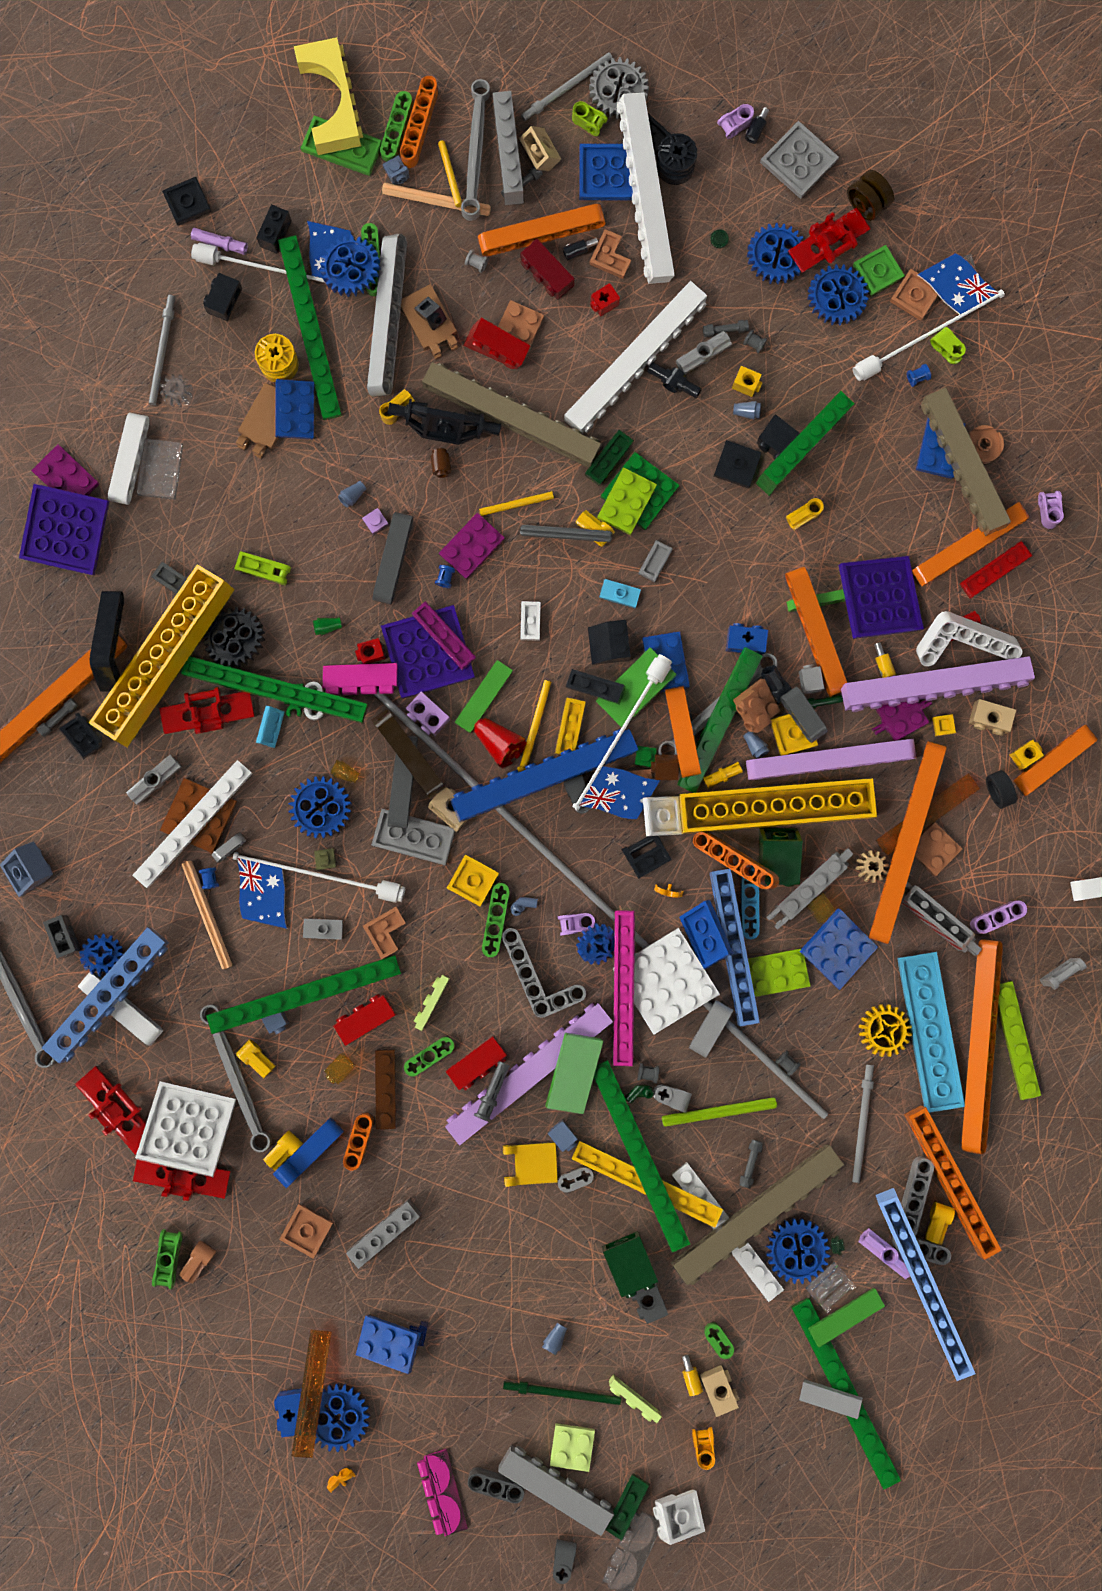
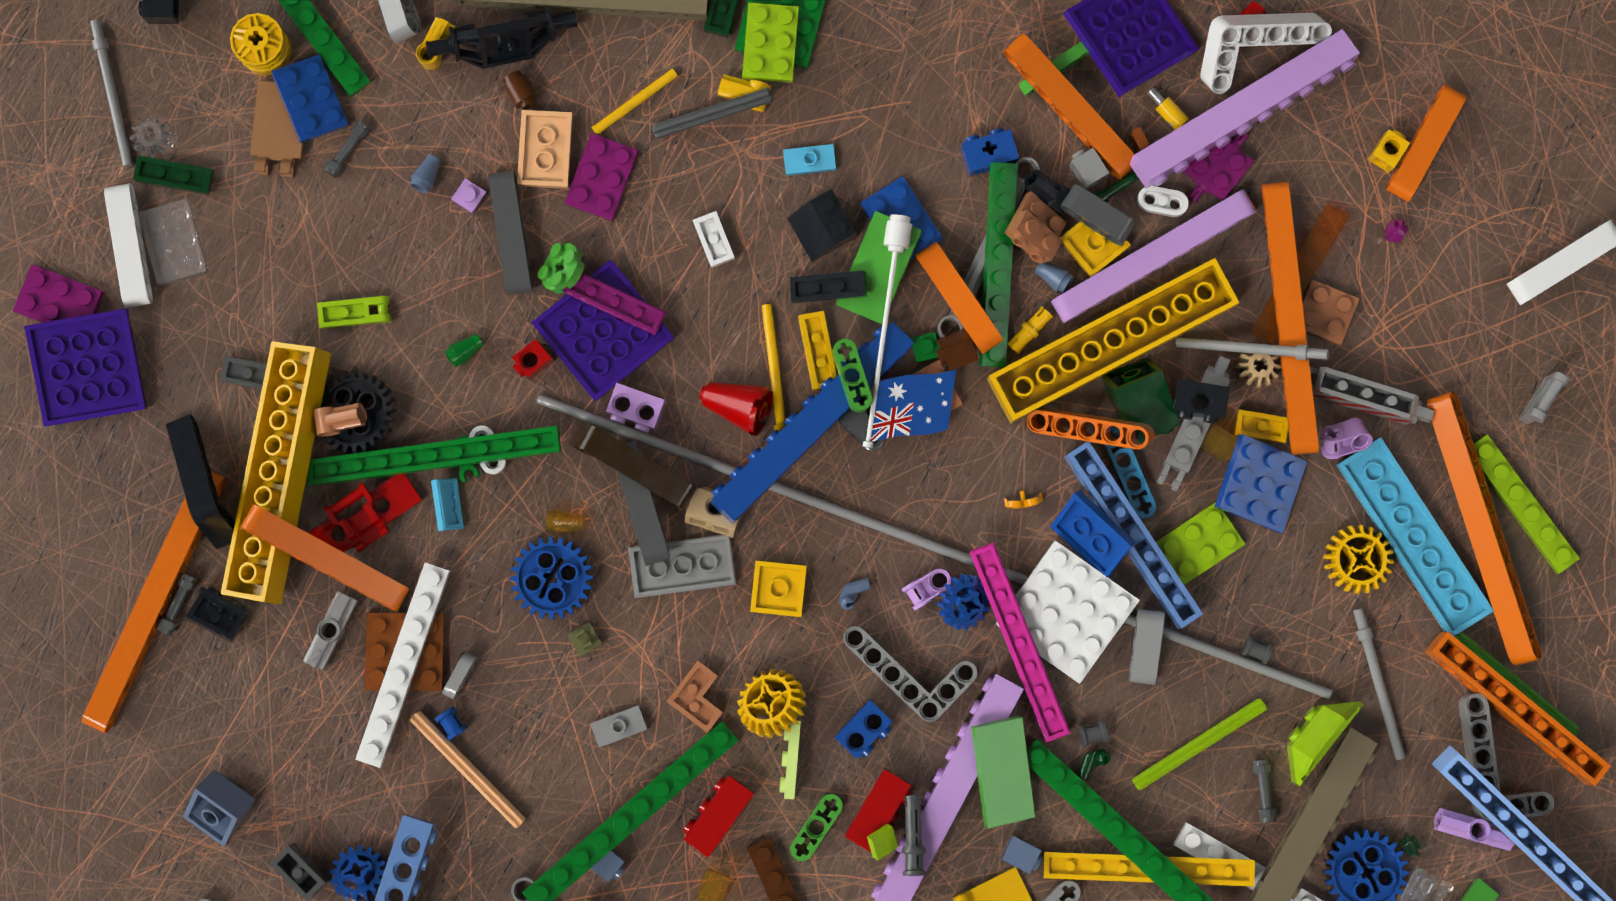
camera: 20 degrees left, 0 degrees up
(169, 727) = (324, 558): none -> orange beam
(179, 423) = (173, 175): none -> dark green plate
(216, 635) = (332, 420): none -> nougat piece
(264, 889) = (526, 710): flag -> none
(319, 445) = (334, 166): none -> dark grey bar
(361, 676) = (536, 393): dark pink windscreen -> none
(417, 596) = (551, 272): none -> bright green plate
(438, 962) = (759, 701): none -> yellow gear
(440, 510) = (545, 149): none -> light nougat plate
(445, 576) = (584, 228): blue bush -> none
(469, 1086) = (882, 842): none -> lime tile
(483, 696) = (695, 356): bright green tile -> none
(488, 998) = (858, 725): none -> blue brick
(498, 920) = (828, 625): bright green beam -> none
(589, 769) = (863, 391): none -> bright green beam
(648, 861) = (984, 473): black plate -> none
(655, 561) = (836, 101): light grey tile -> none
(662, 816) = (977, 411): white tile -> none
(675, 1098) = (1137, 750): light grey piece -> none
(804, 1141) = (1316, 736): none -> lime wedge
(832, 874) = (1216, 397): none -> black brick
(851, 726) = (1162, 199): none -> white plate
(854, 674) = (1138, 139): none -> dark orange tile
(856, 909) = (1261, 426): none -> yellow plate
(904, 869) = (1301, 352): none -> light grey bar
(912, 942) = (1346, 437): none -> lavender piece
(940, 1217) = (1521, 758): yellow piece -> none
(944, 725) = (1273, 156): yellow plate -> none
(960, 1164) = (1518, 683): none -> bright green axle
(1001, 789) = (1376, 206): black tyre -> none
(1003, 717) = (1340, 114): tan brick -> none
(1007, 917) = (1446, 355): lavender beam -> none
(1008, 813) = (1396, 231): none -> magenta plate

